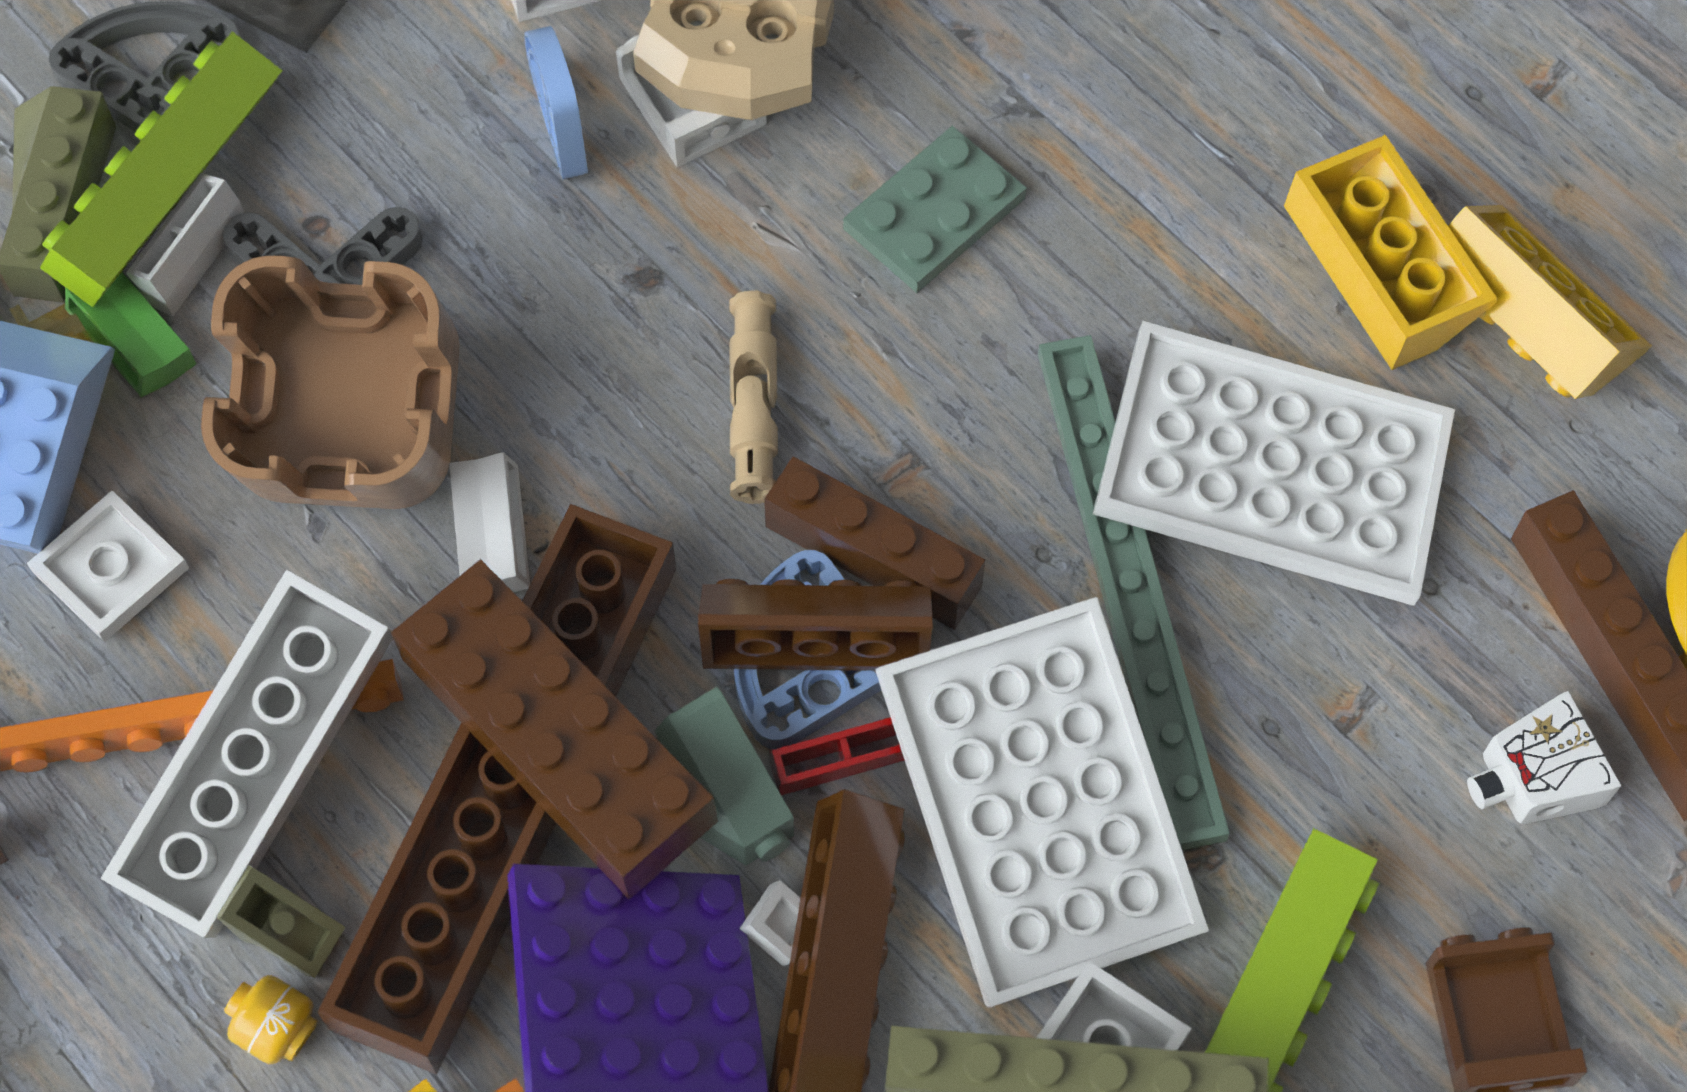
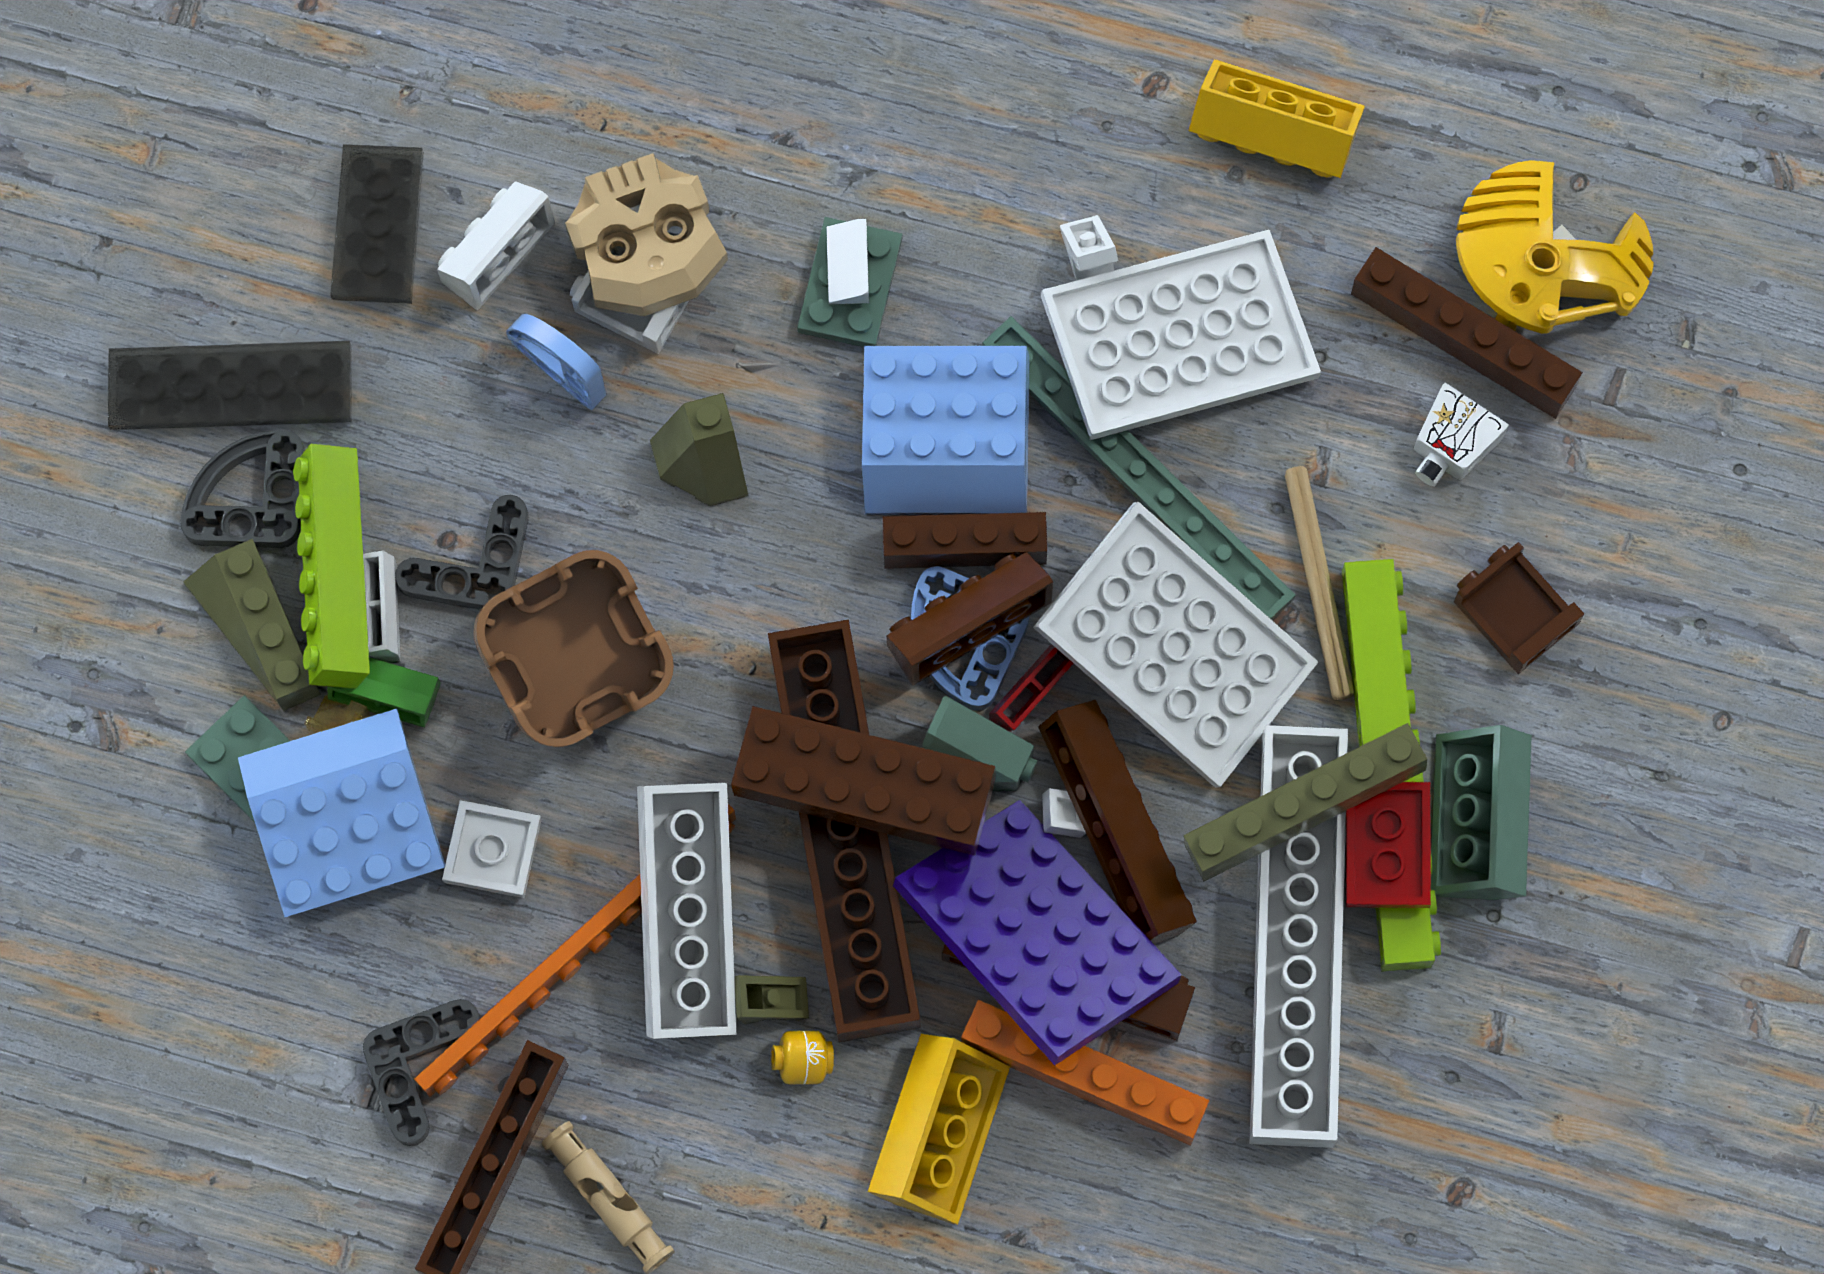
camera: 30 degrees left, 10 degrees up
(490, 518) = (714, 676): white piece -> none
(648, 278) = (701, 452): none -> olive slope
(752, 427) = (837, 510): tan piece -> none
(934, 406) = (945, 430): none -> light blue slope
(944, 178) = (848, 262): none -> white slope
(1229, 314) = (1088, 247): none -> white slope
(1267, 843) = (1319, 583): none -> tan axle
(1388, 250) = (1164, 143): yellow slope -> none

